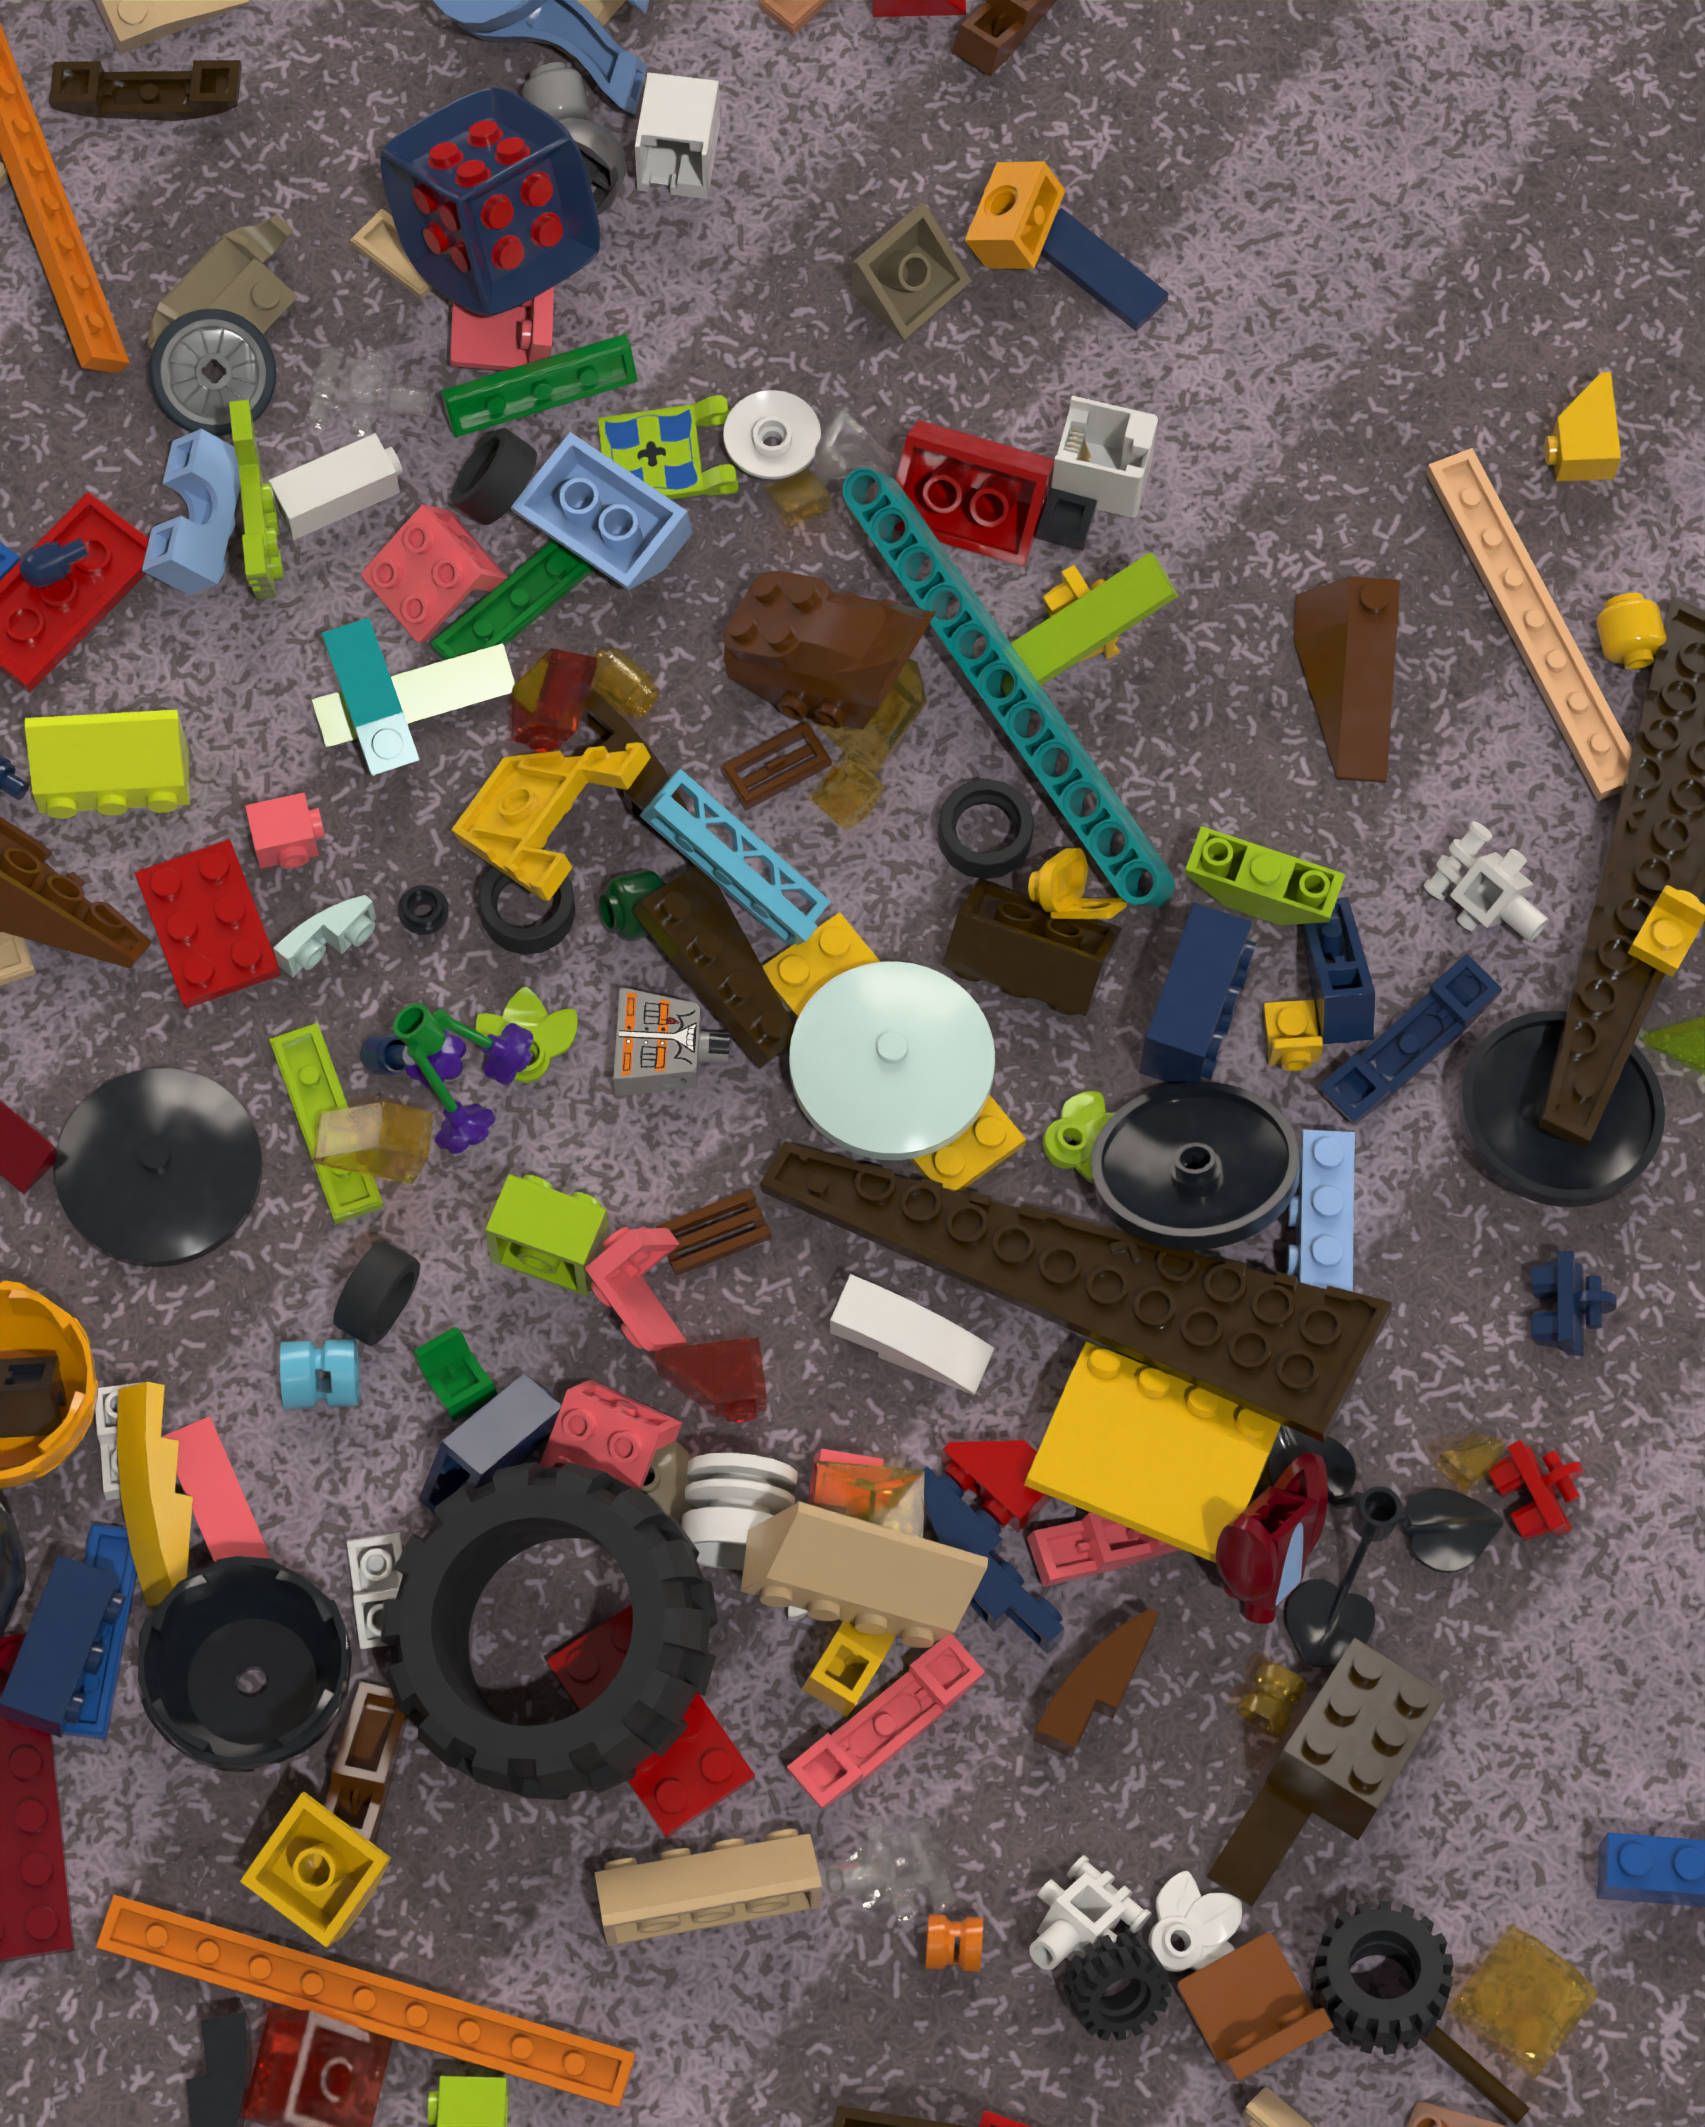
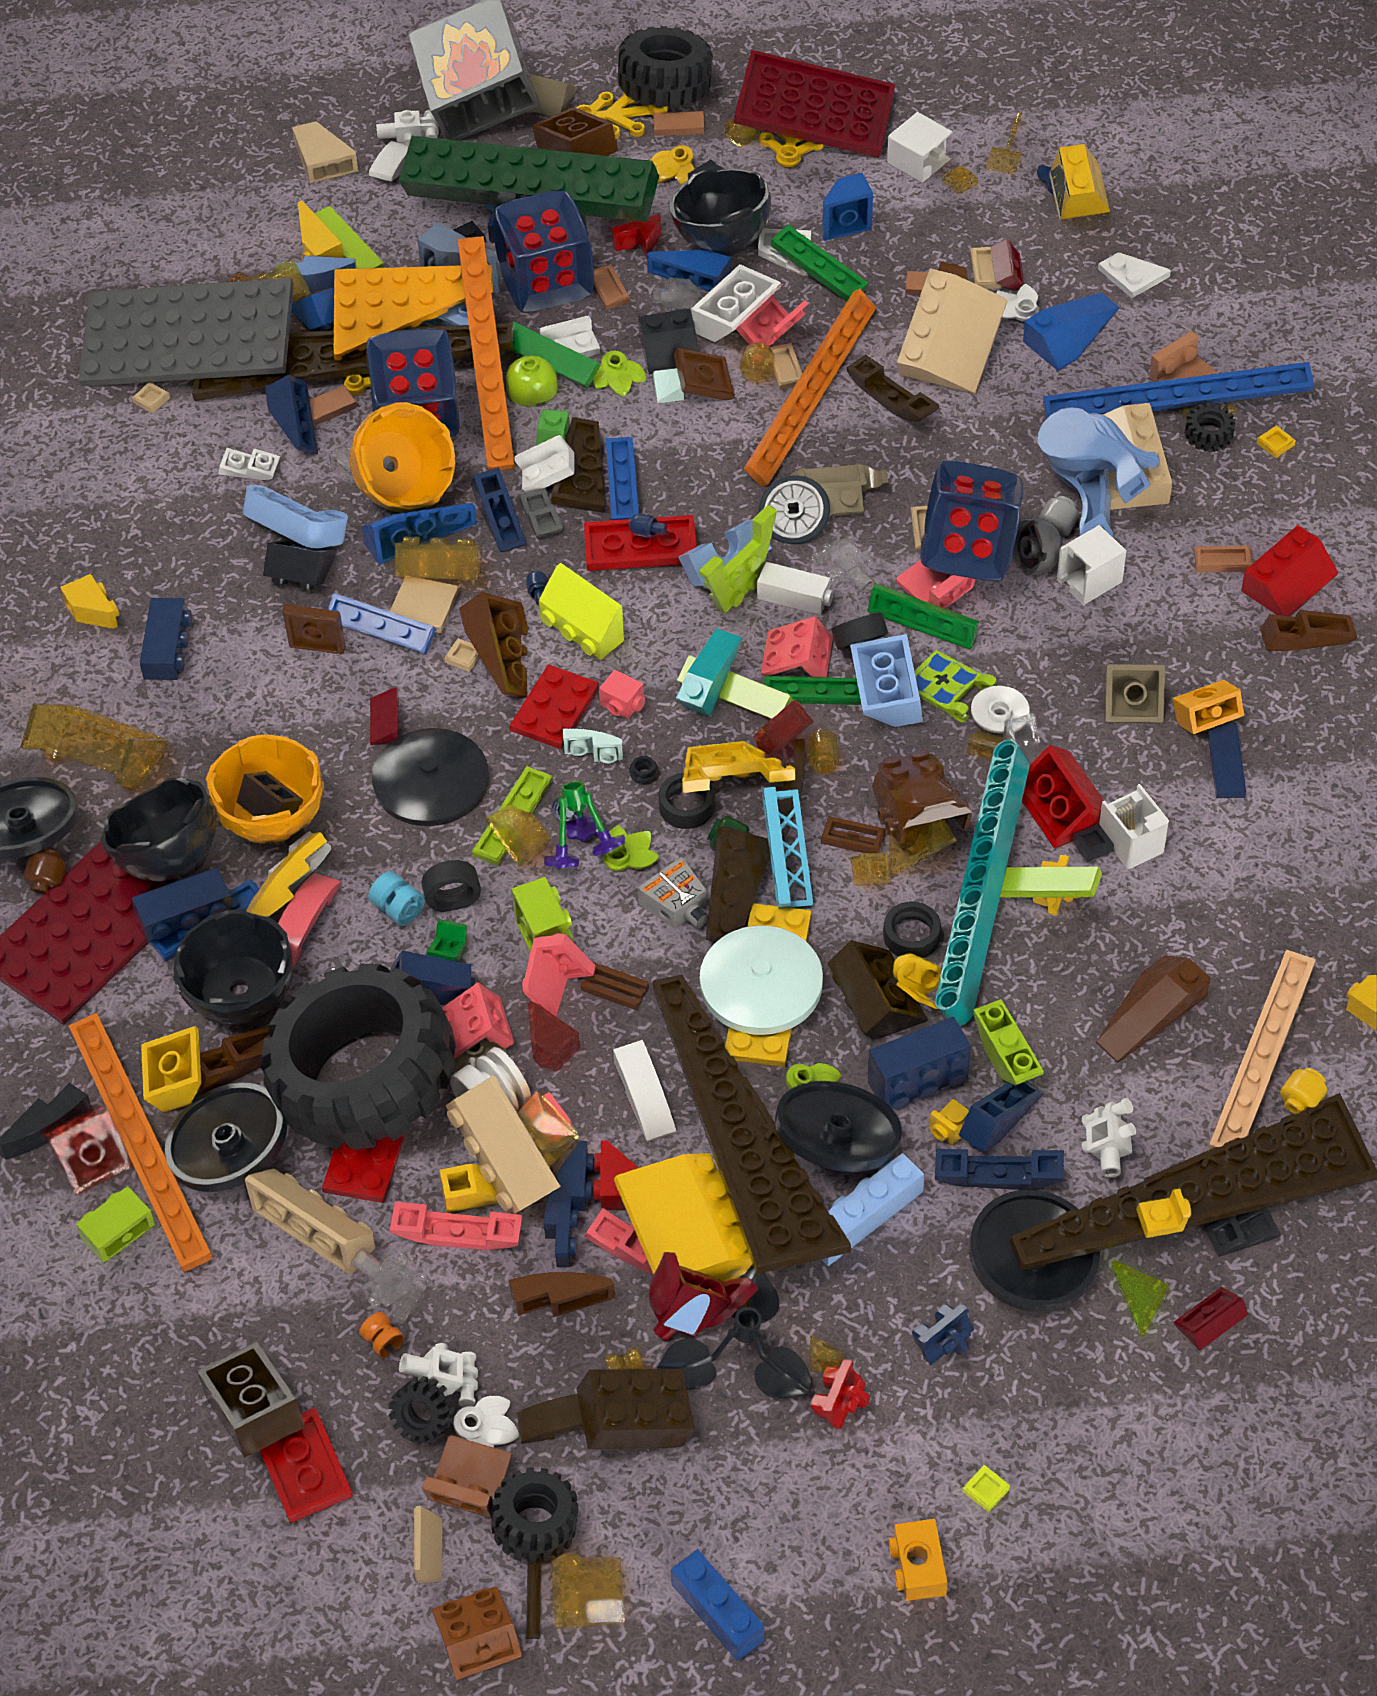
camera: 50 degrees right, 15 degrees down
(483, 1892) = (225, 1137): none -> black dish

